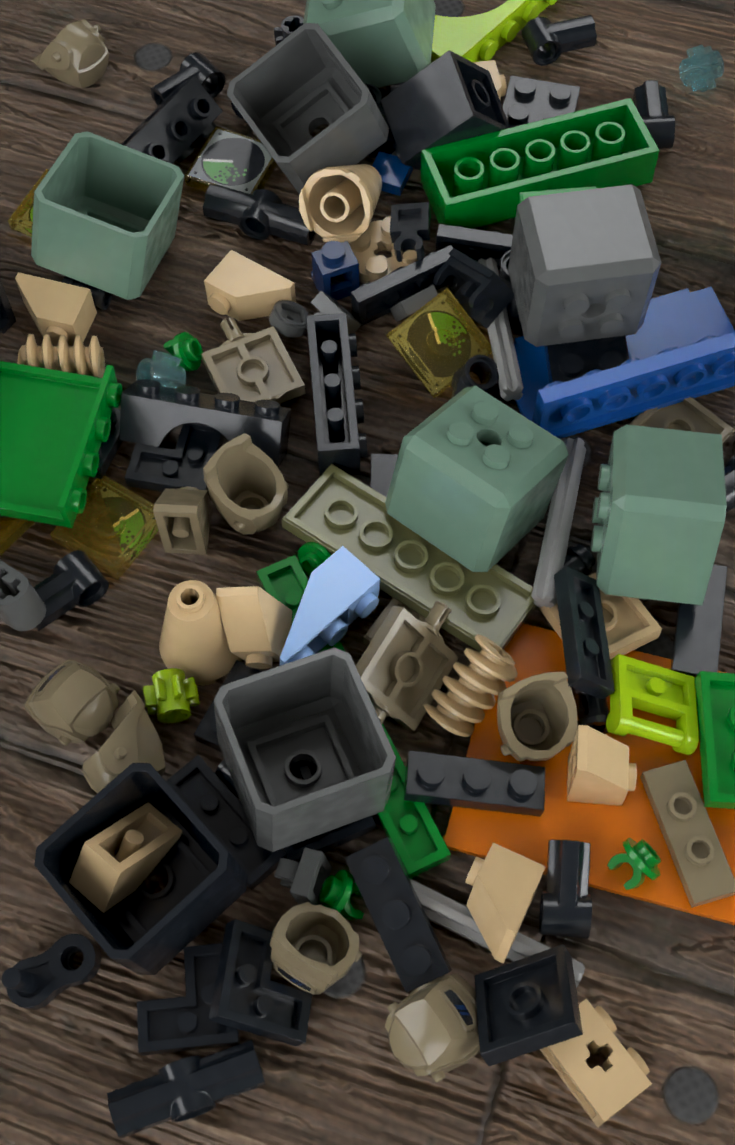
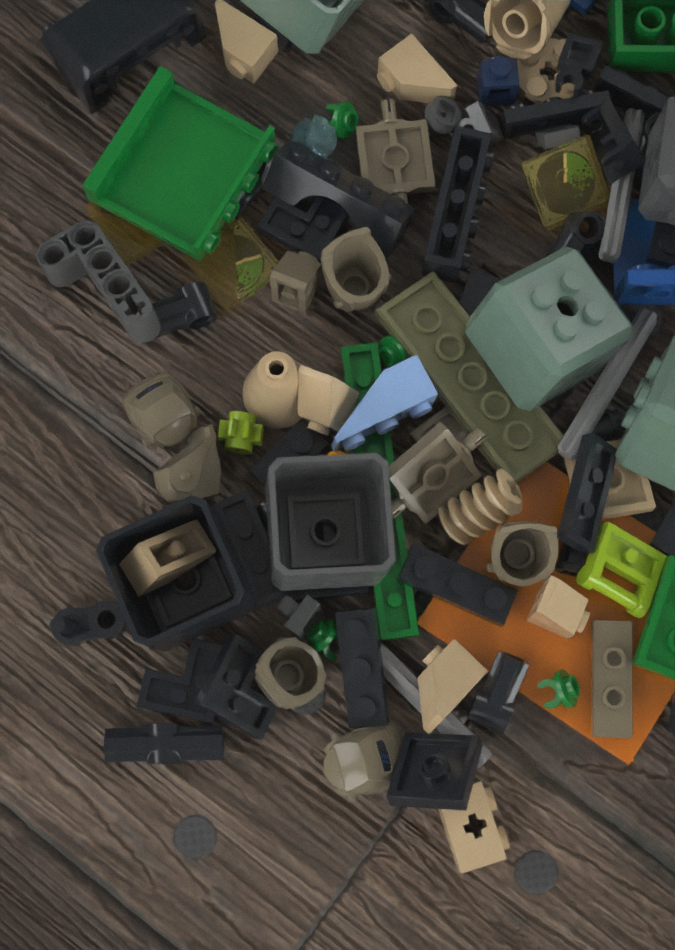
camera: 15 degrees right, 15 degrees up
(64, 358) = (236, 95): tan piece -> none

